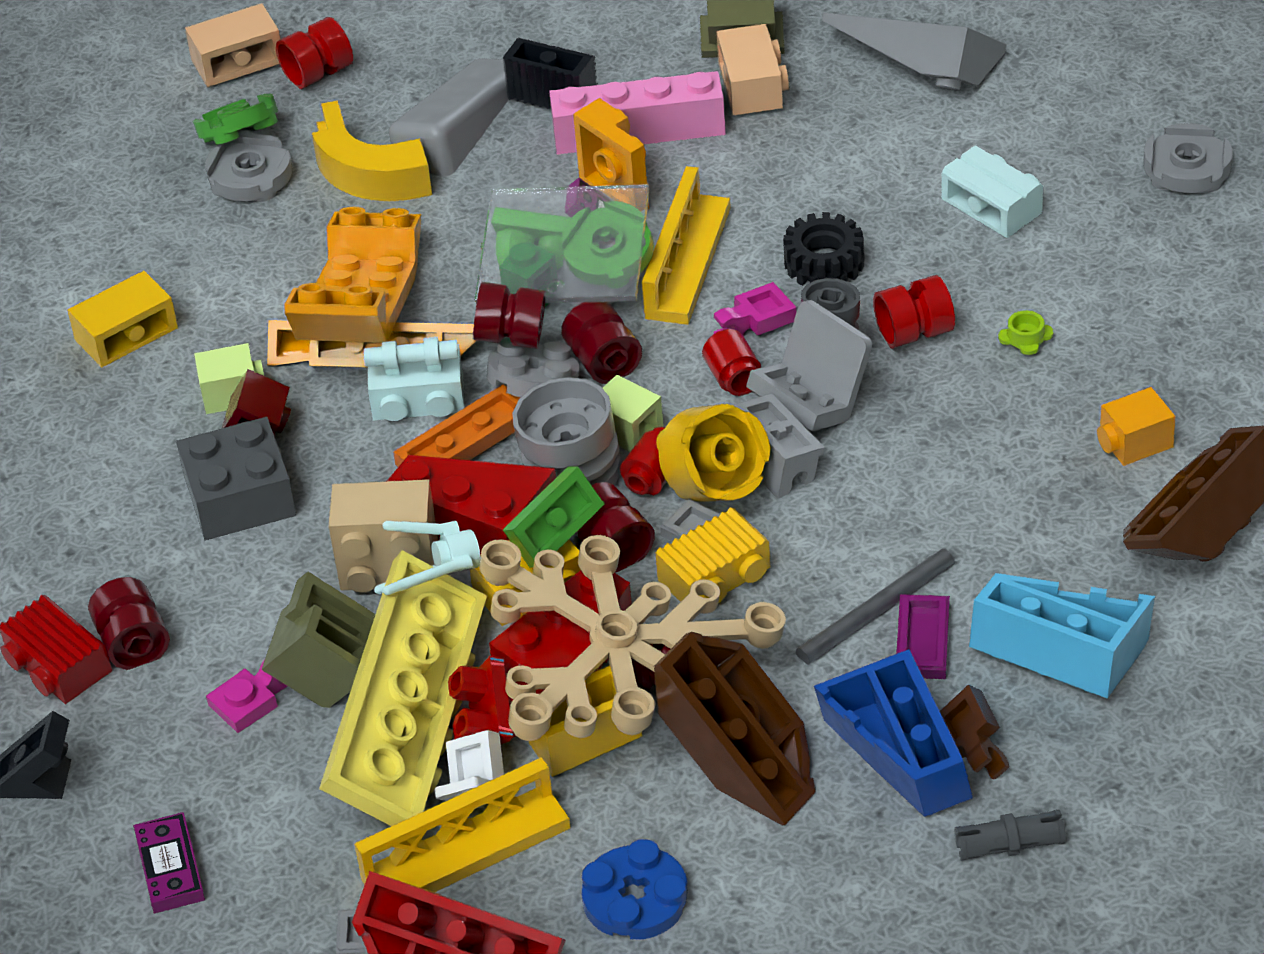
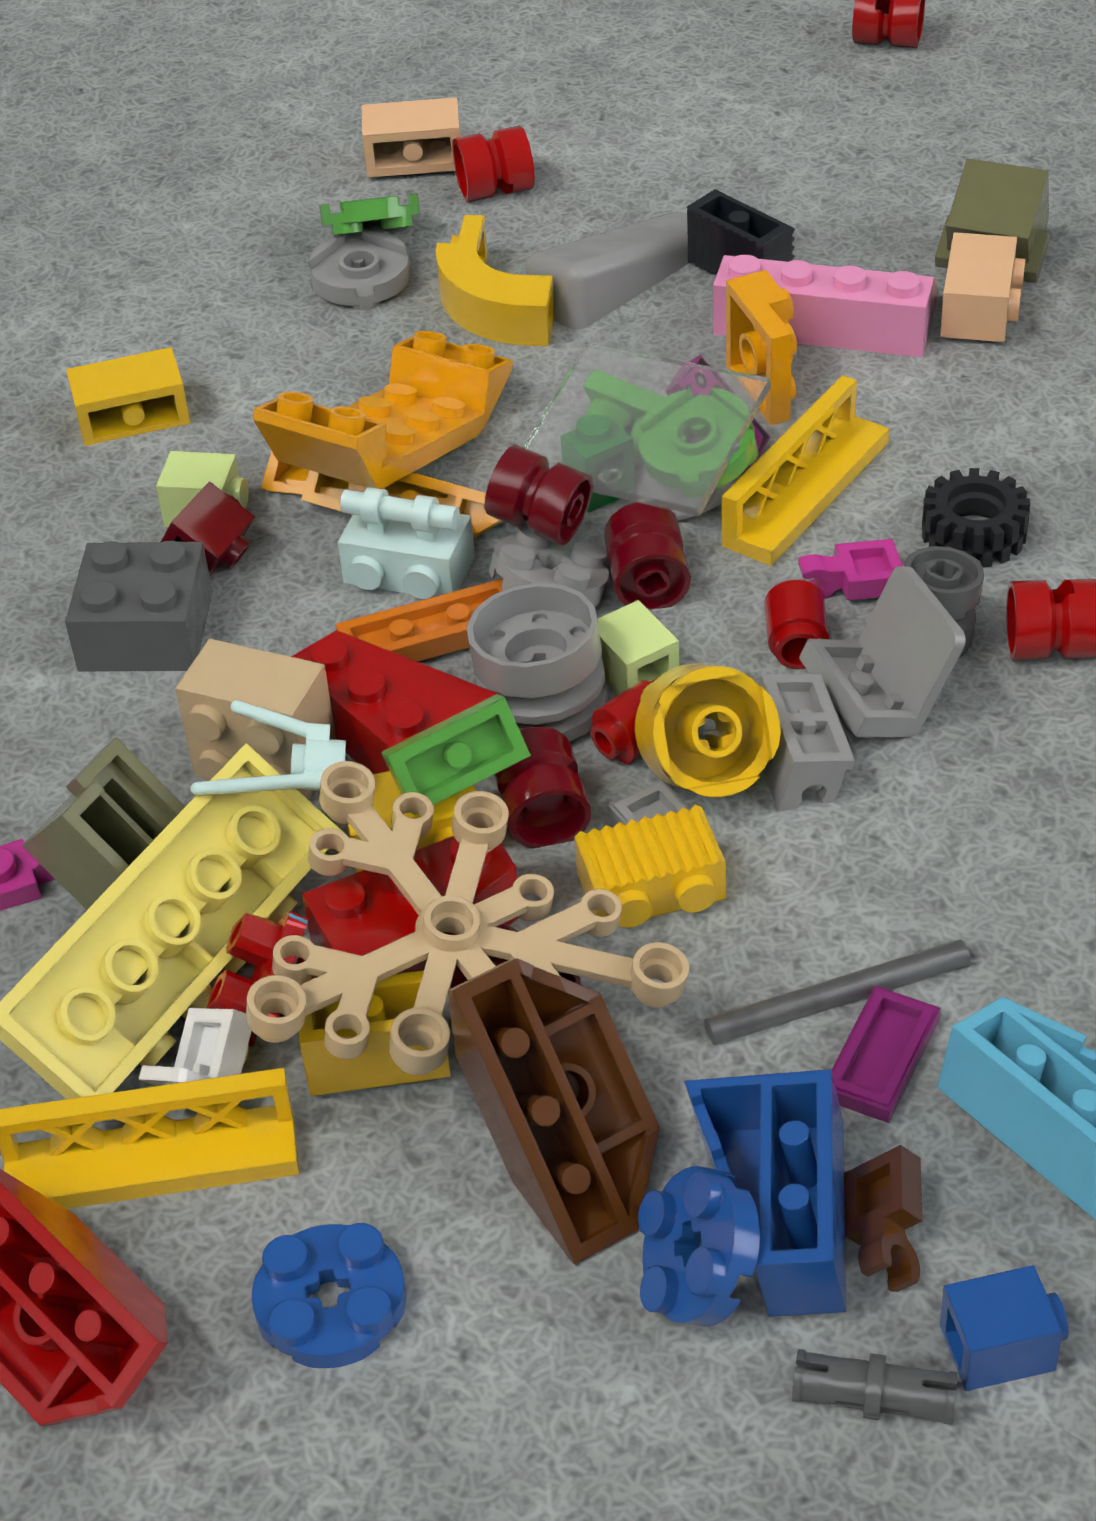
camera: 20 degrees right, 0 degrees up
(845, 786) = (688, 1280): none -> blue plate
(1074, 775) = (1002, 1327): none -> blue brick

